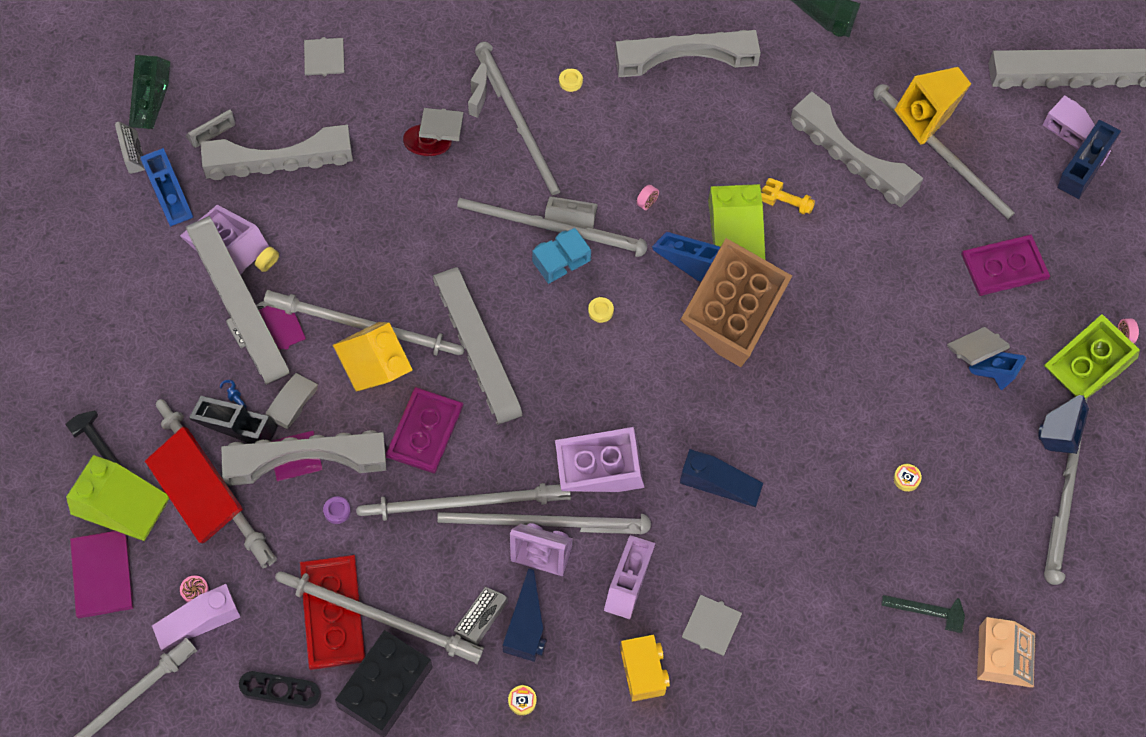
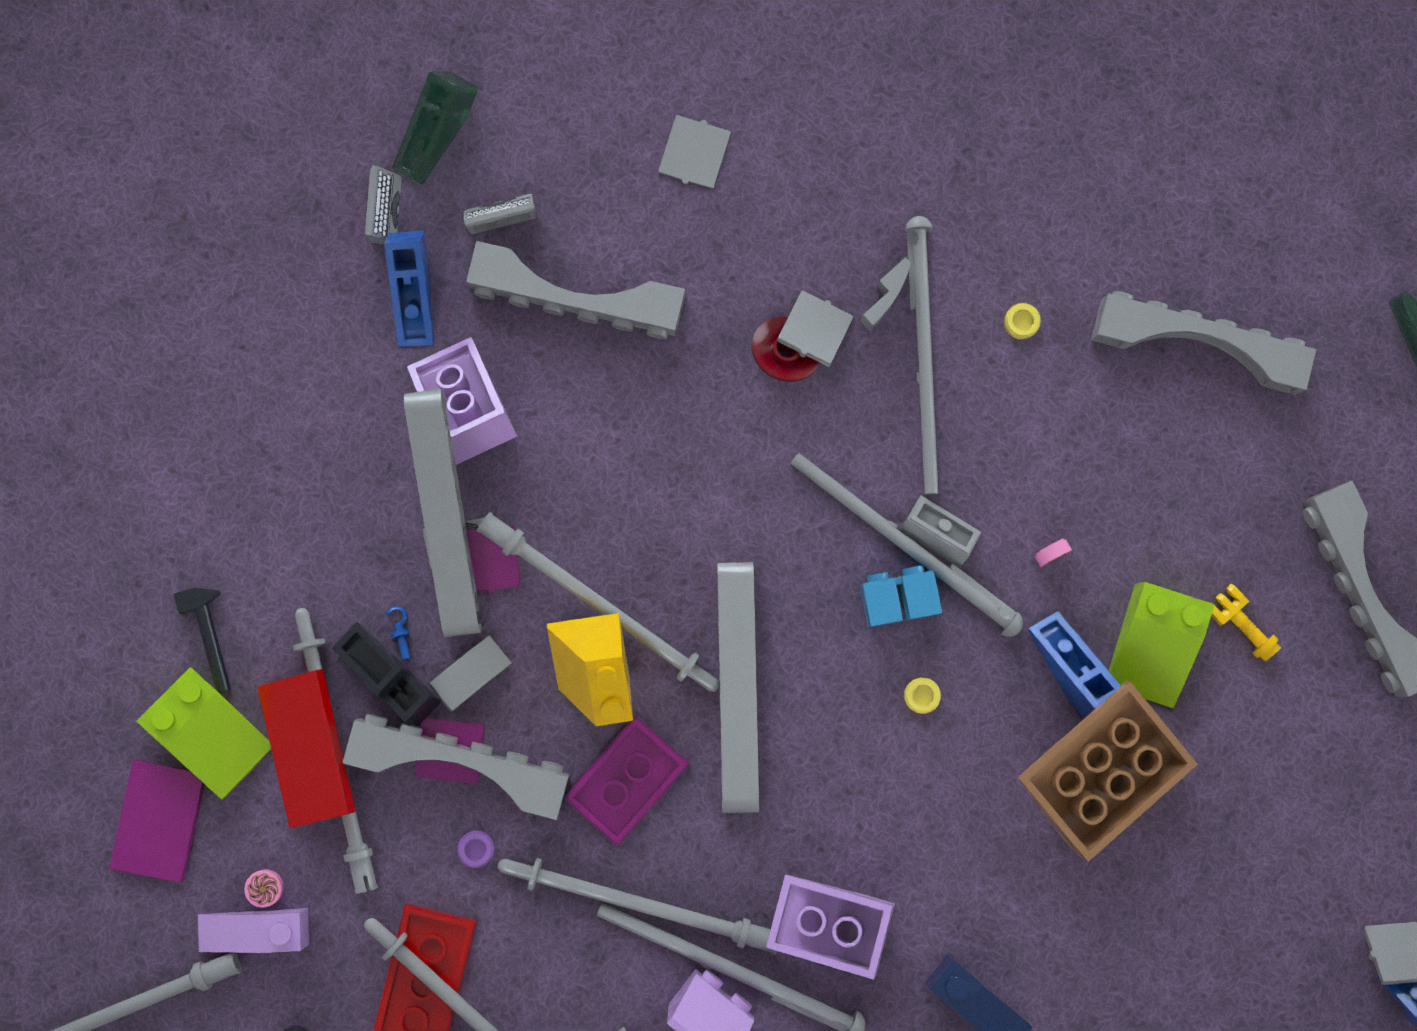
camera: 20 degrees right, 20 degrees up
(266, 259) = (507, 452): light yellow tile -> none

